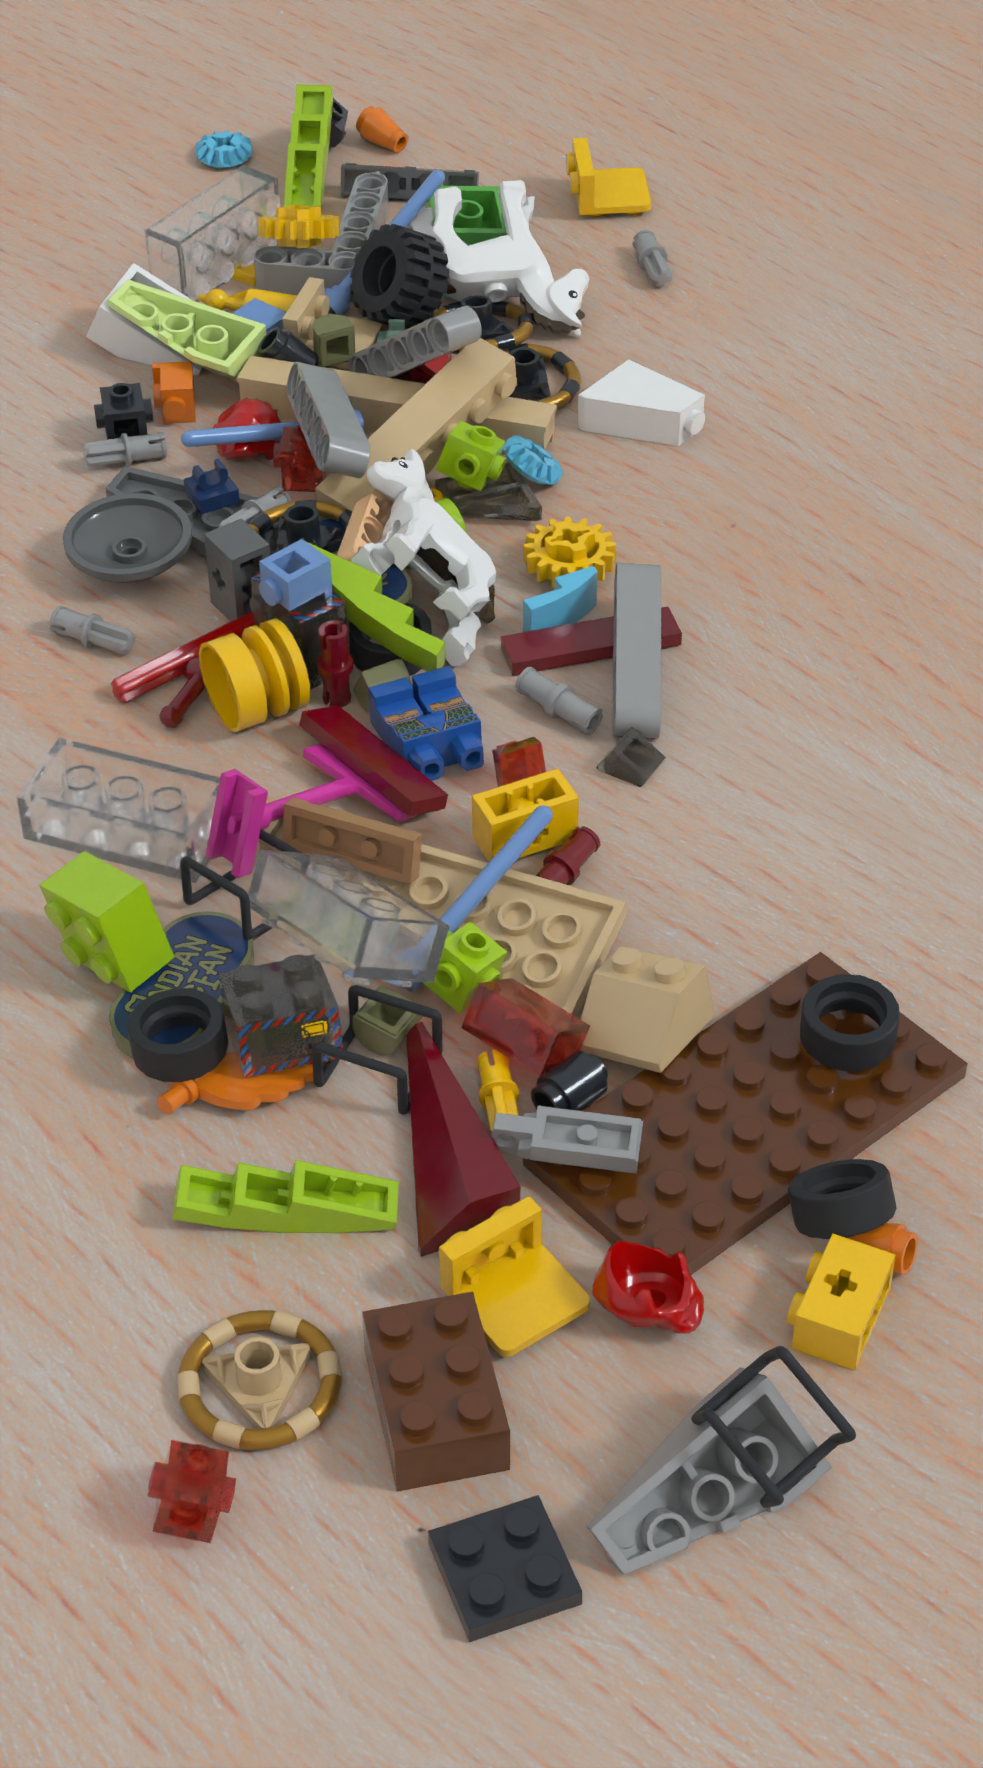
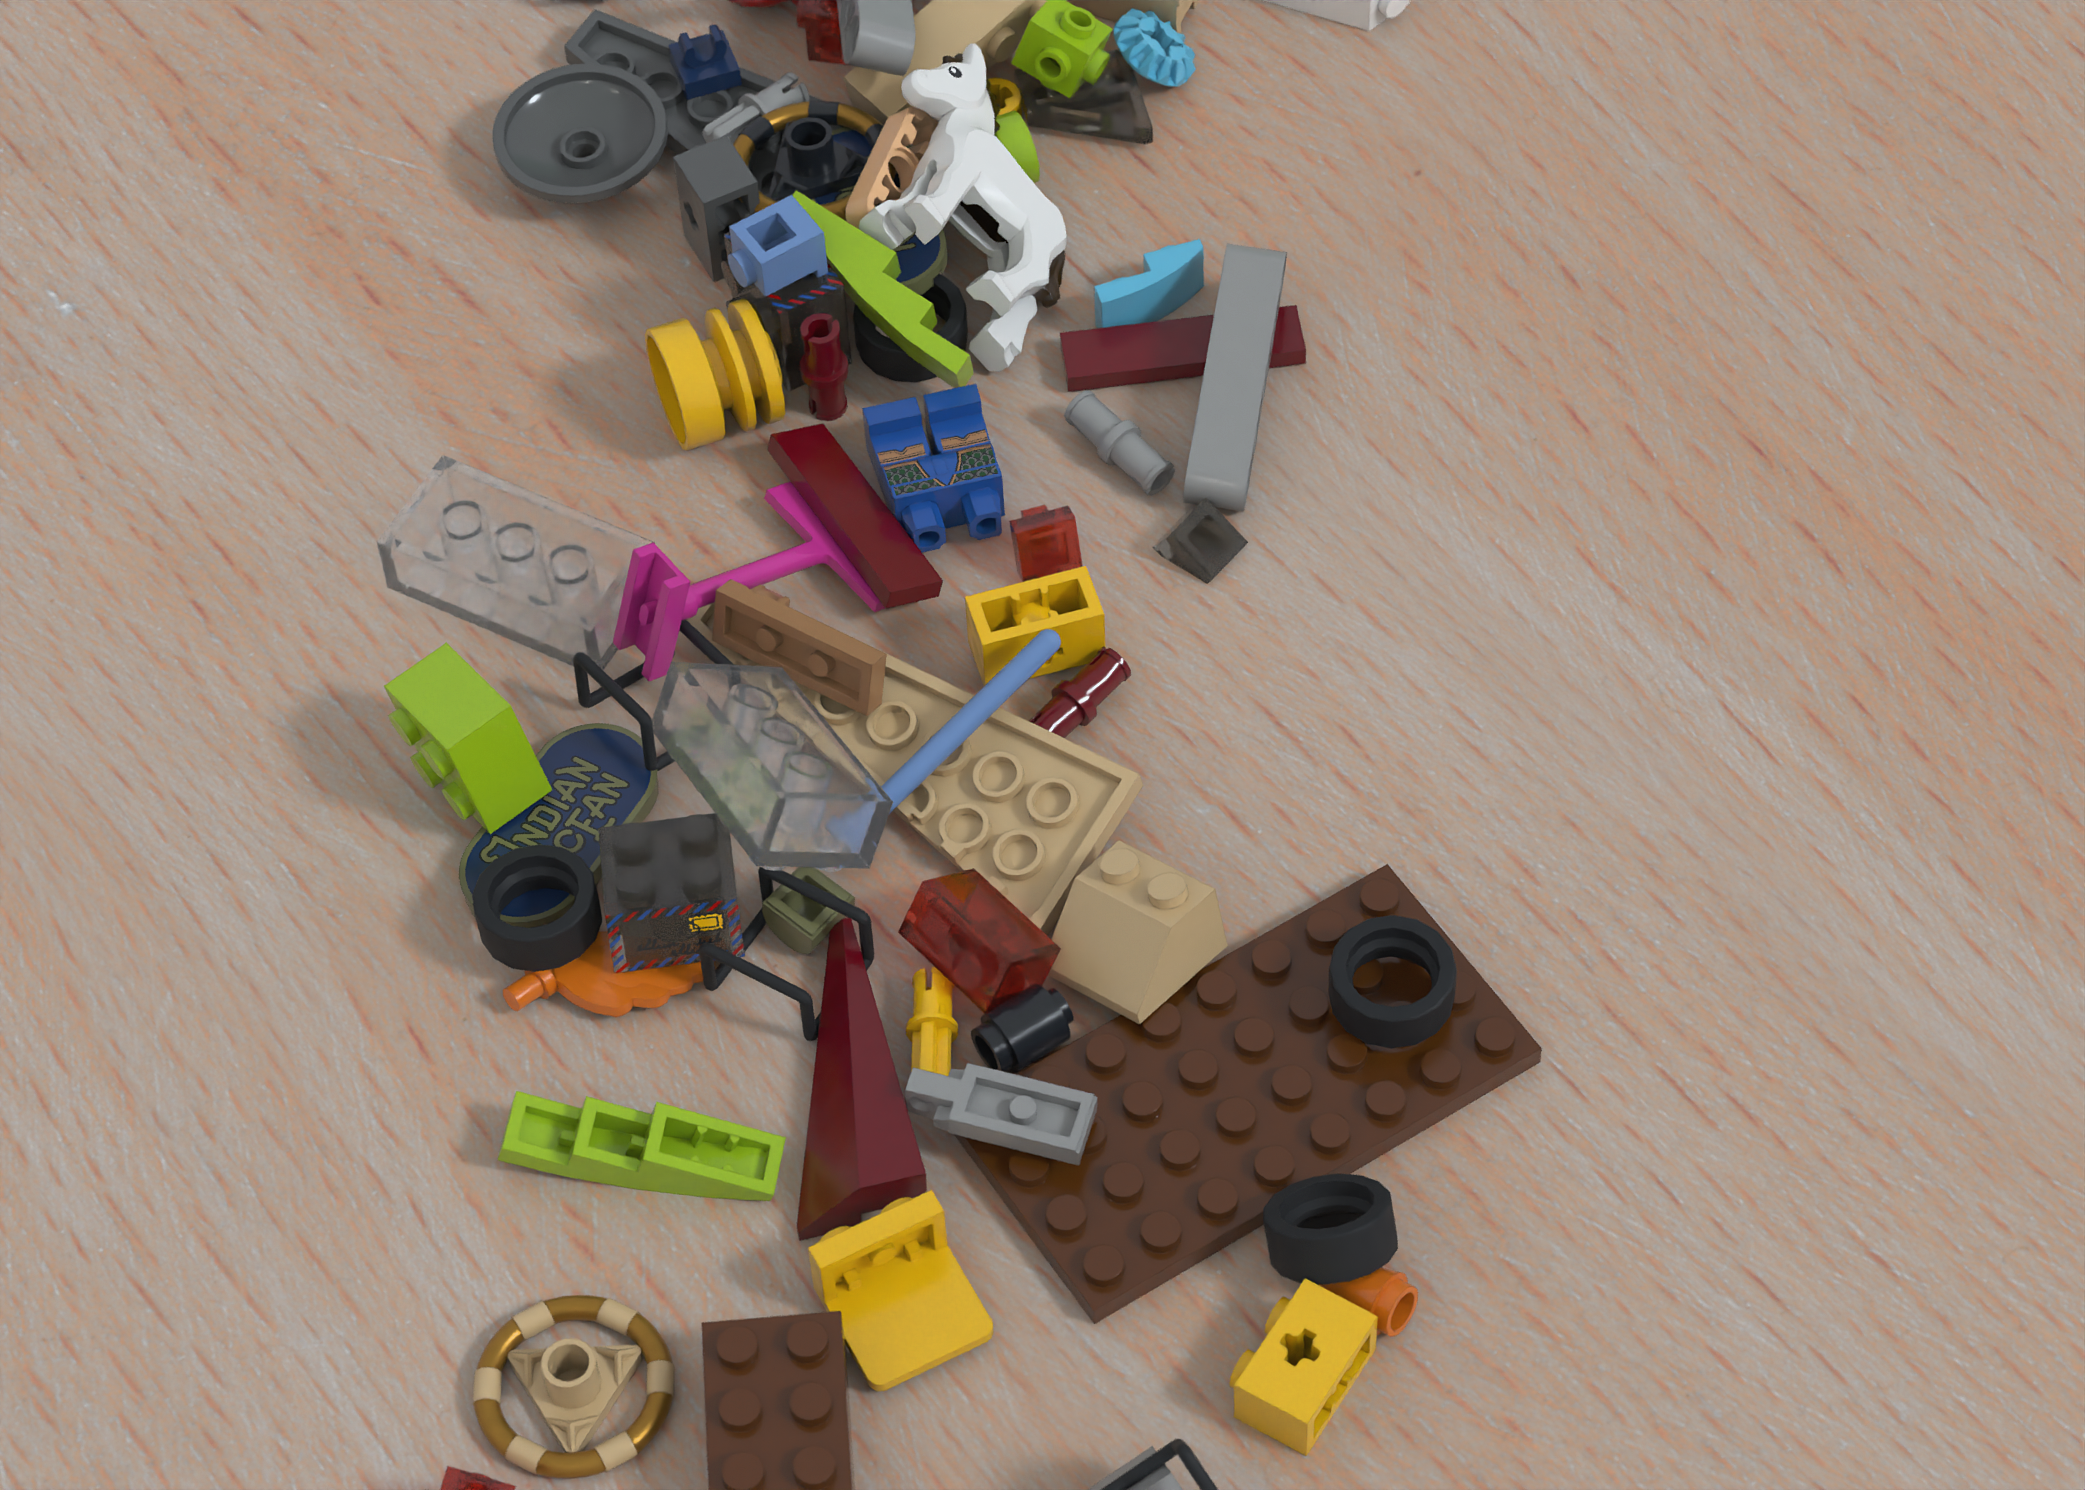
camera: 10 degrees right, 10 degrees up
(91, 630) = (515, 271): light grey axle -> none
(171, 664) = (629, 329): red axle -> none
(172, 714) = (604, 415): dark red piece -> none
(378, 675) = (886, 389): olive brick -> none
(465, 962) = (918, 844): lime brick -> none
(568, 548) = (1177, 203): yellow gear -> none
(648, 1288) = (1064, 1324): red hair -> none

